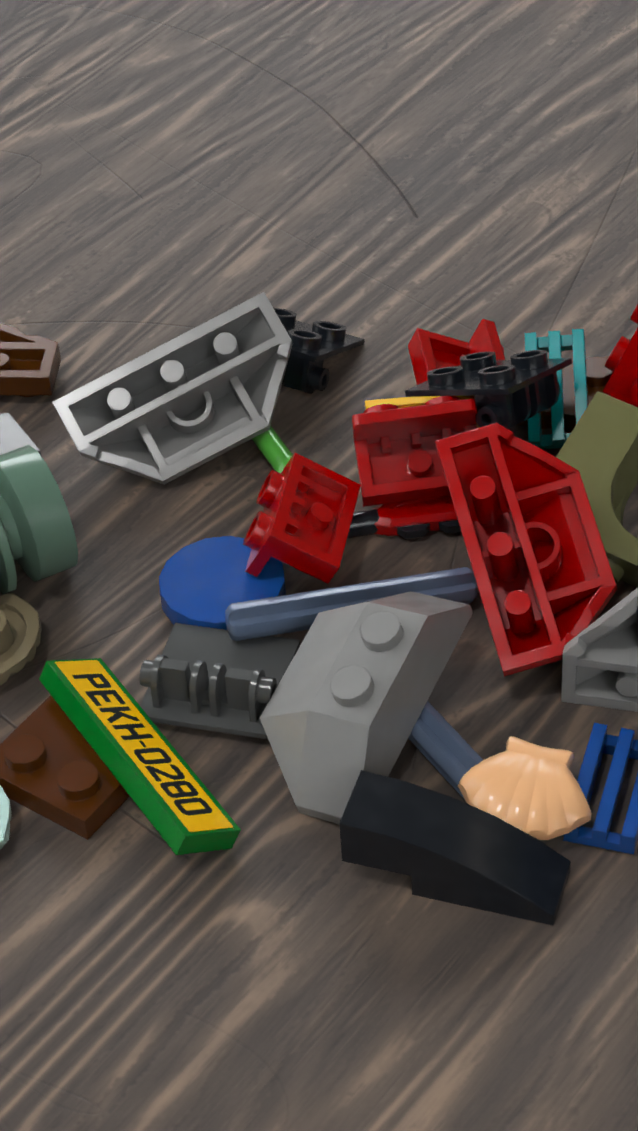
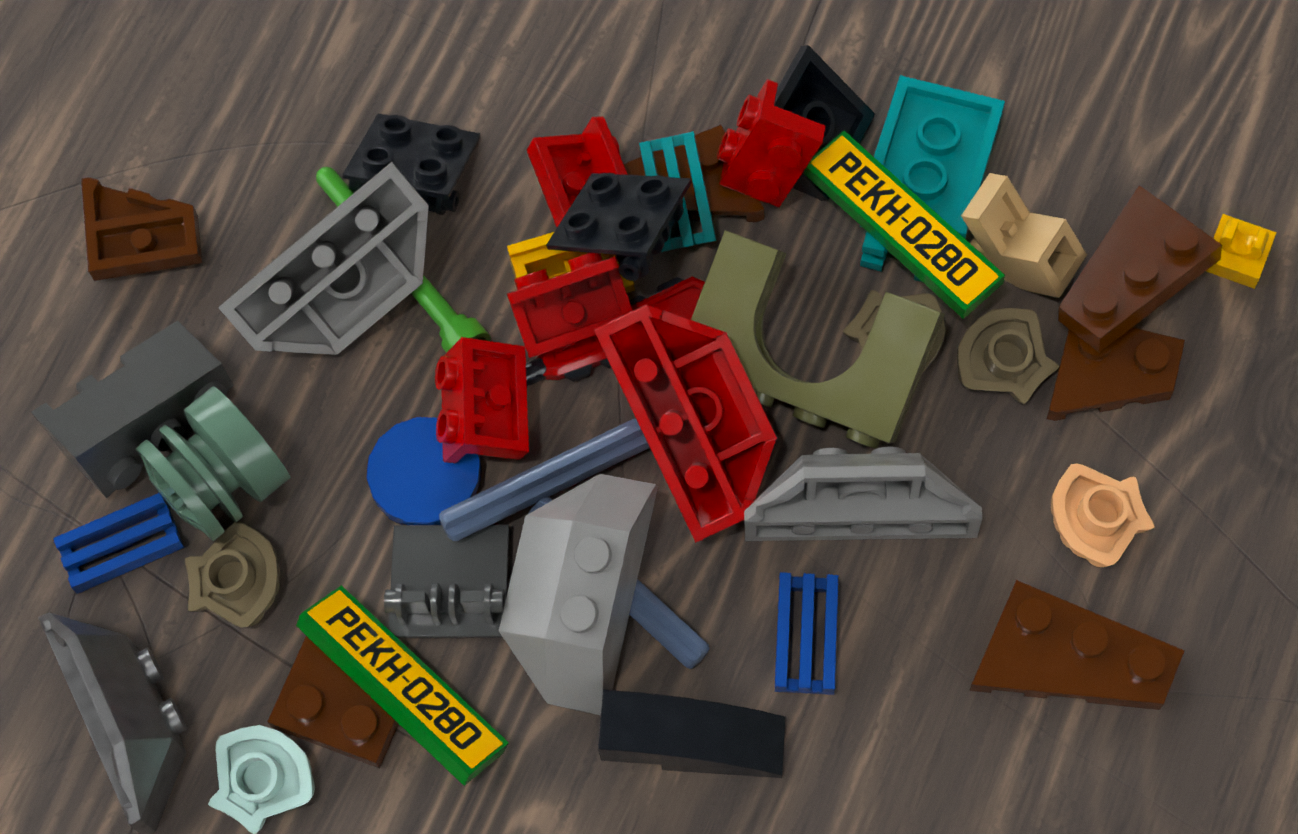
camera: 10 degrees left, 25 degrees up
(528, 789) = (739, 662): light nougat animal -> none

